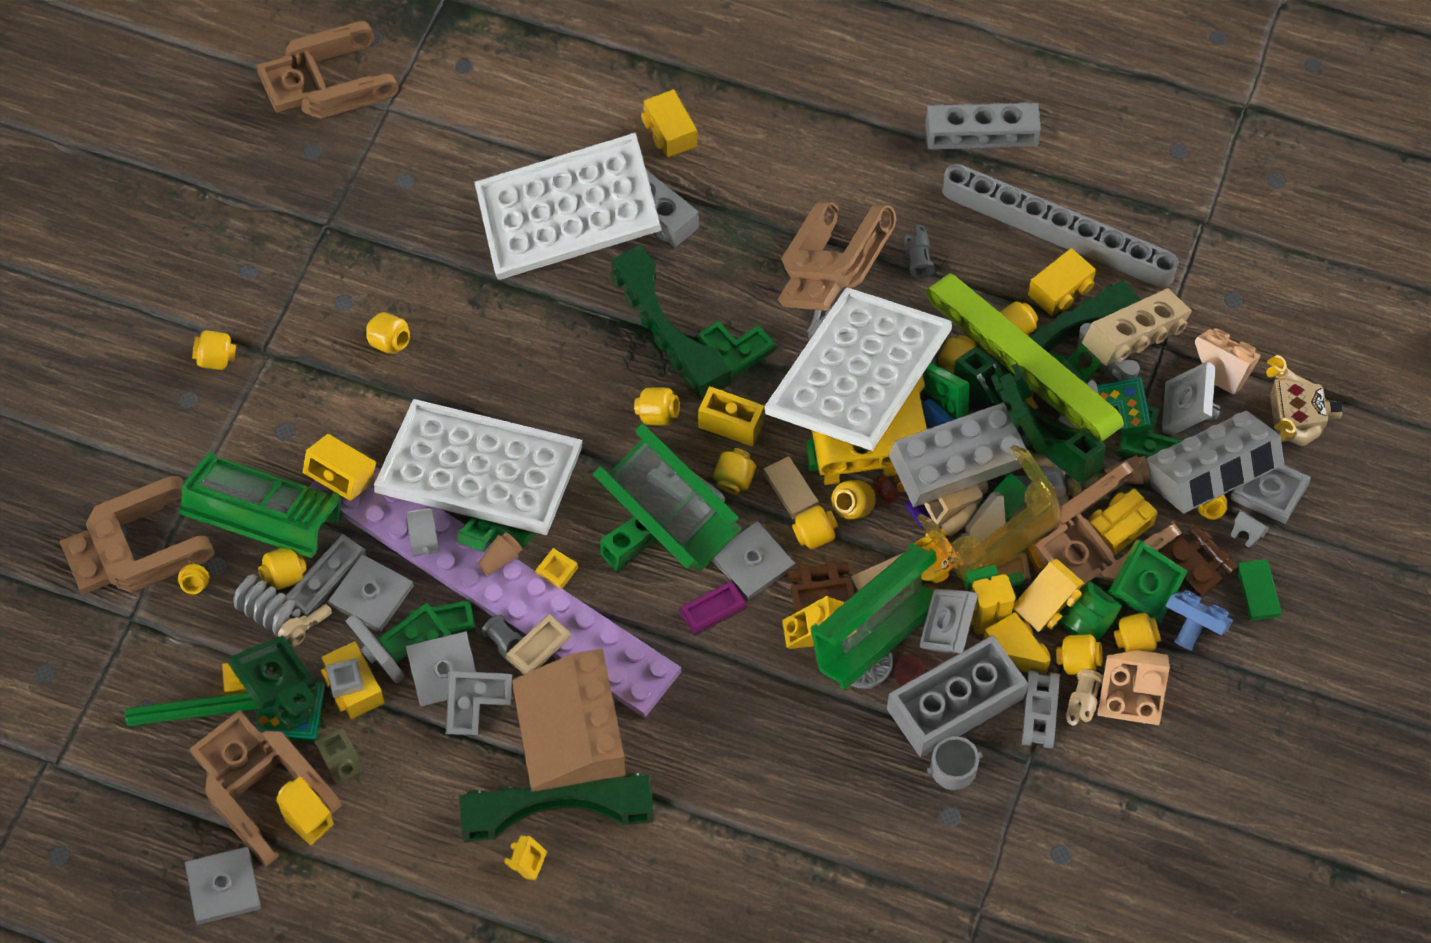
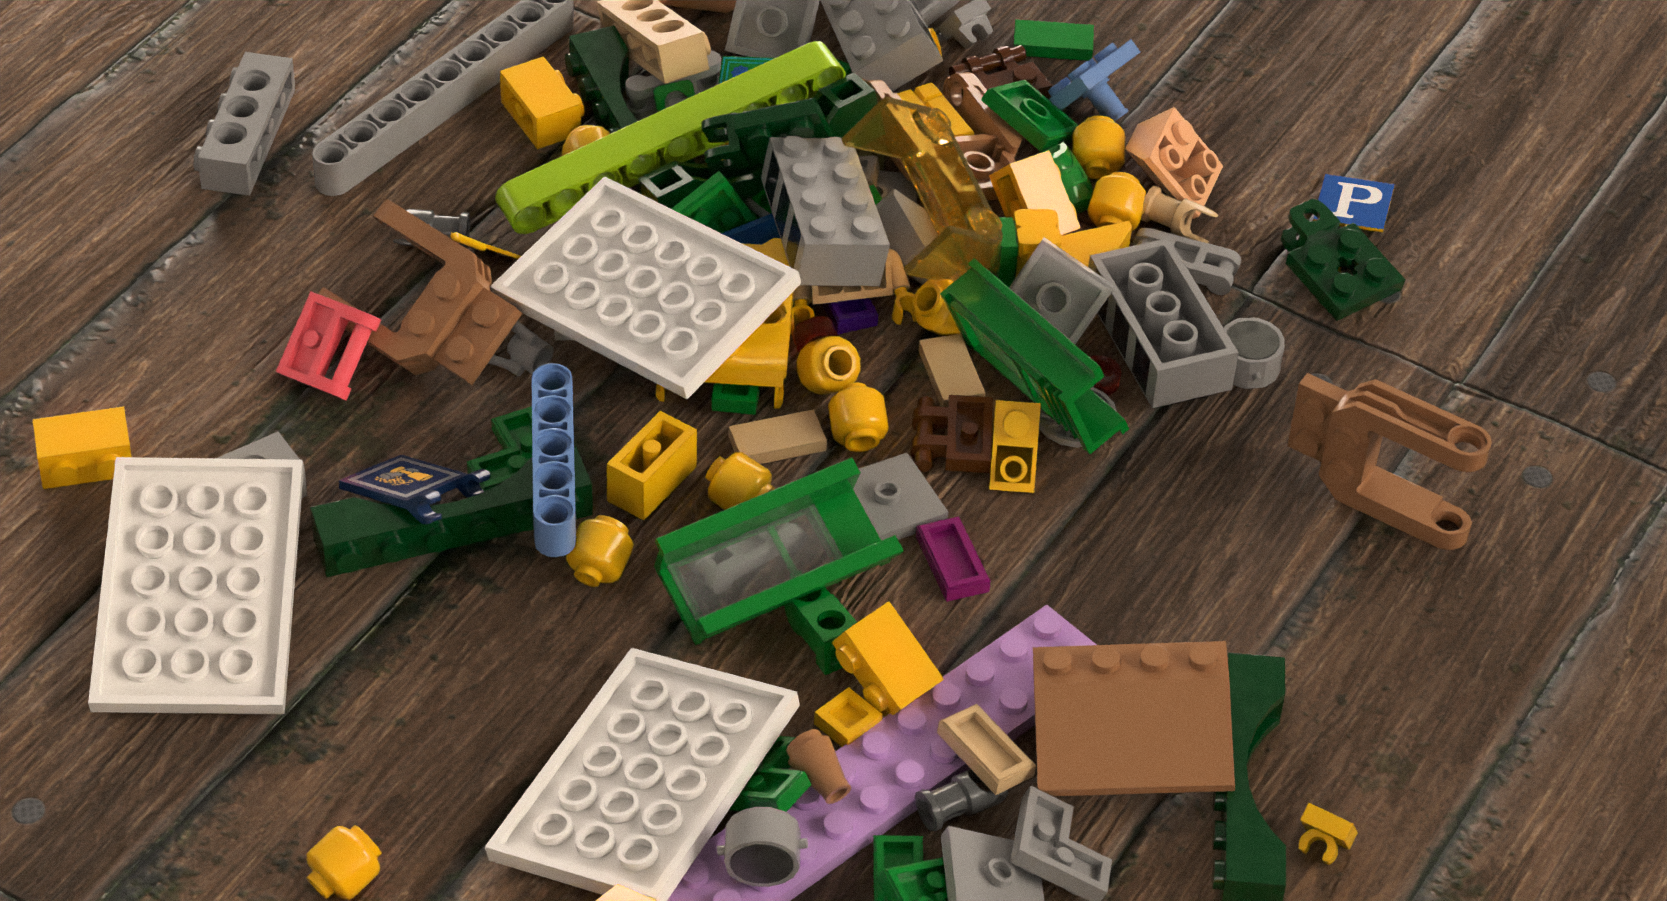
camera: 80 degrees left, 15 degrees down
(593, 576) = (886, 660): none -> yellow brick
(681, 290) = (413, 484): none -> dark blue flag
(713, 346) = (553, 460): none -> medium blue beam
(783, 212) = (316, 342): none -> coral plate
(844, 852) = (1346, 437): none -> medium nougat plate
(902, 283) = (481, 246): none -> yellow piece
(1079, 800) = (1326, 248): none -> dark green plate
(1143, 820) = (1357, 201): none -> blue piece

